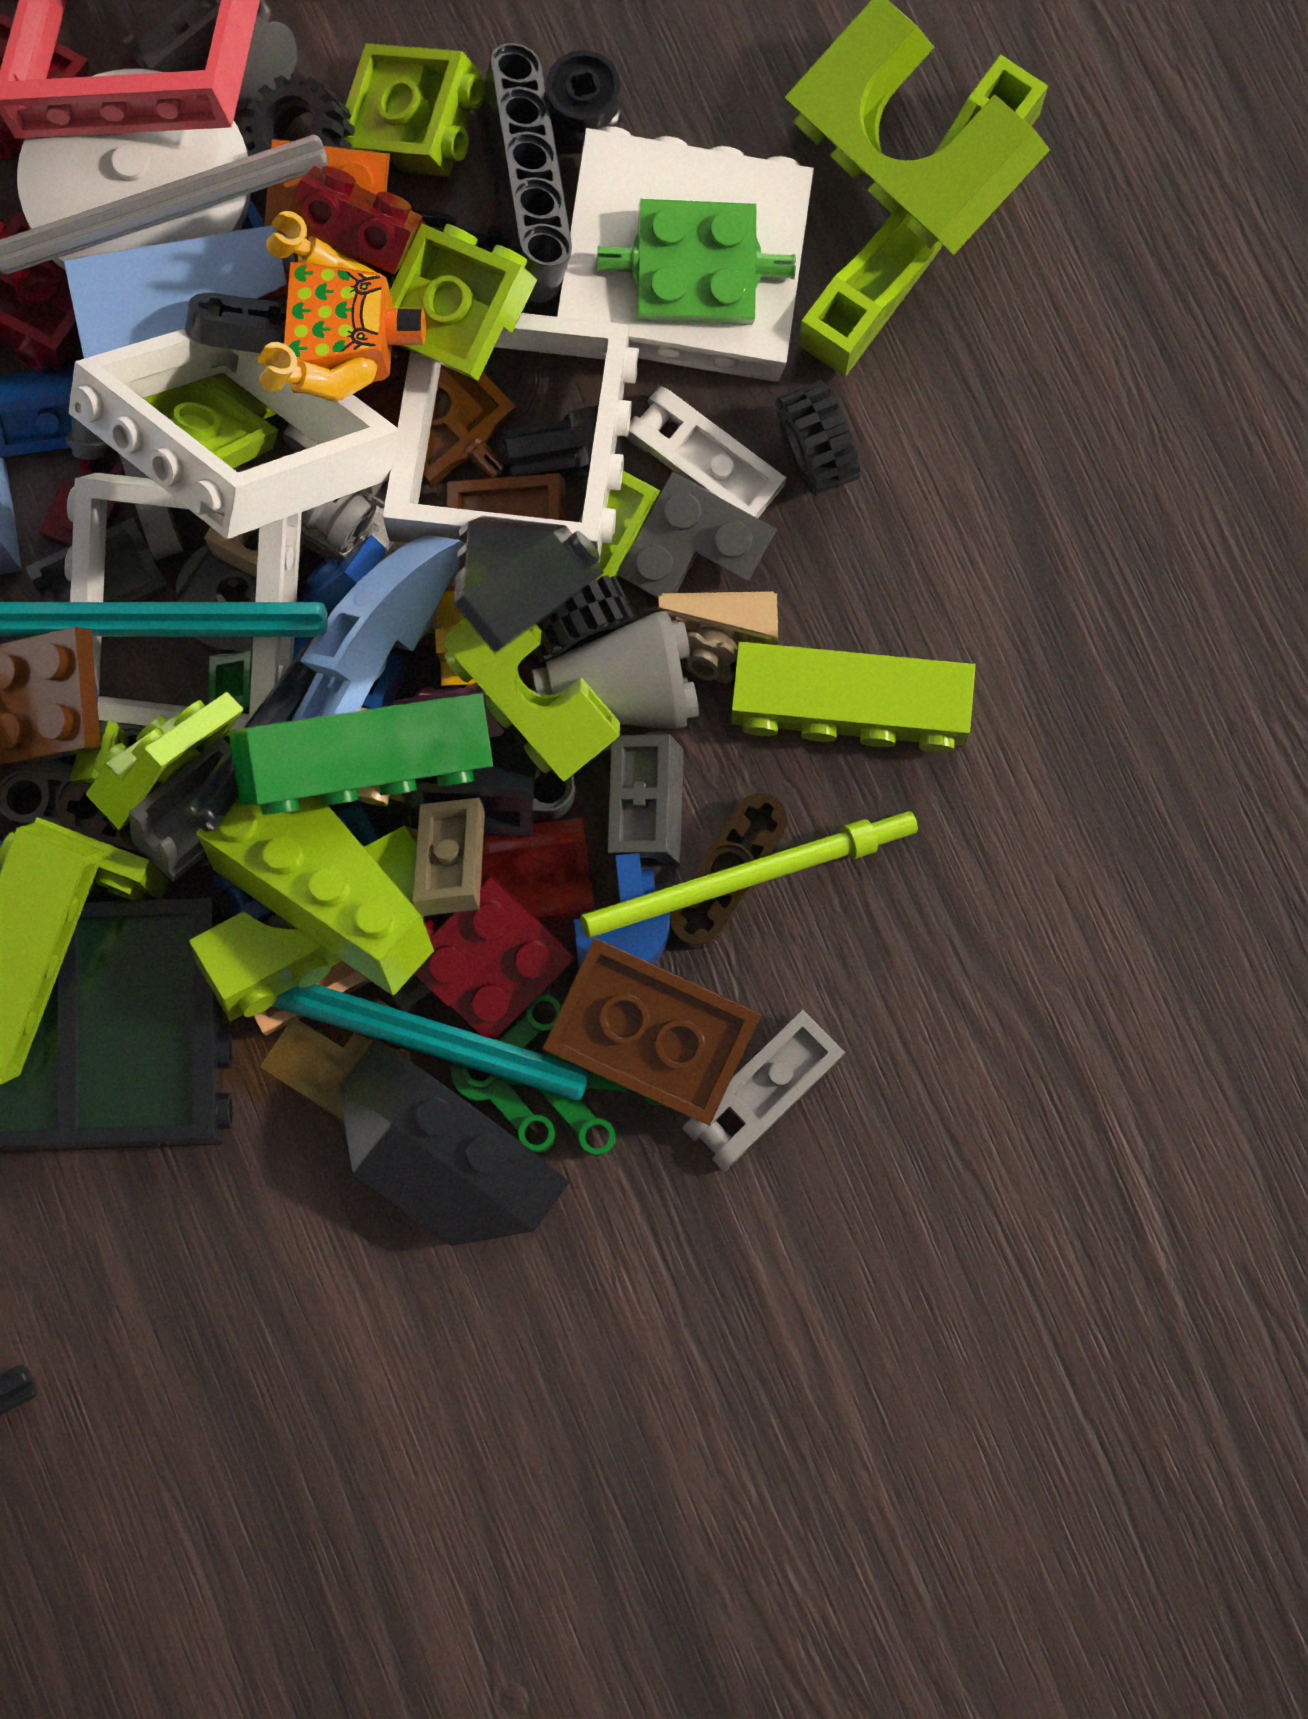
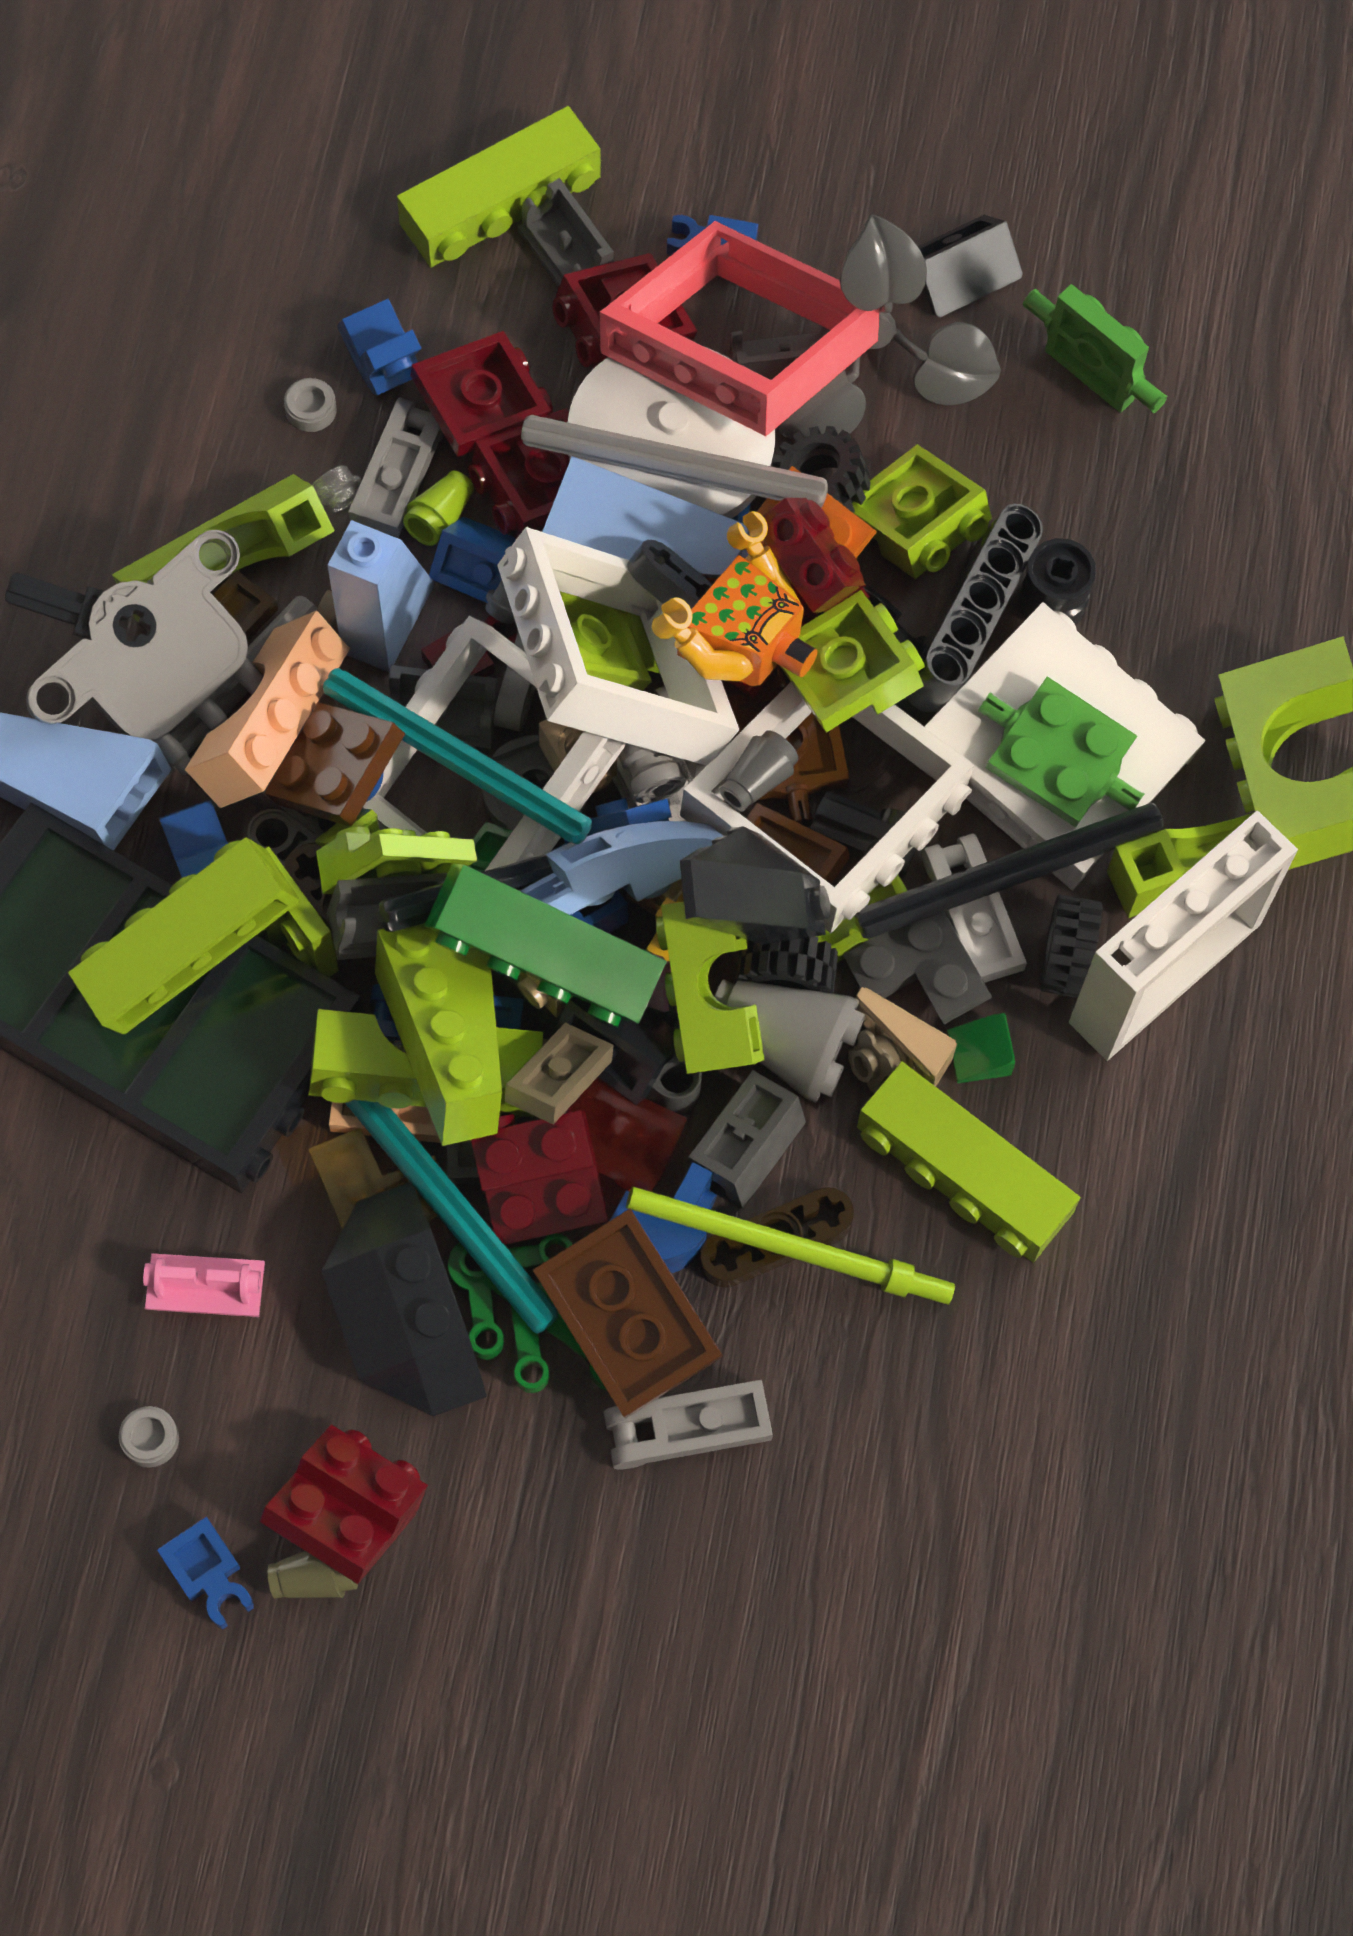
camera: 30 degrees right, 10 degrees down
(249, 1250) = (204, 1285): none -> bright pink hinge
(294, 1418) = (148, 1436): none -> light grey tile
(422, 1499) = (202, 1565): none -> blue plate
(442, 454) = (760, 768): none -> dark grey cone
(514, 1363) = (345, 1502): none -> dark red plate
(527, 1440) = (306, 1578): none -> olive cone
(721, 403) = (1008, 871): none -> black axle
(798, 580) = (983, 1049): none -> green slope
(920, 366) = (1182, 935): none -> white window

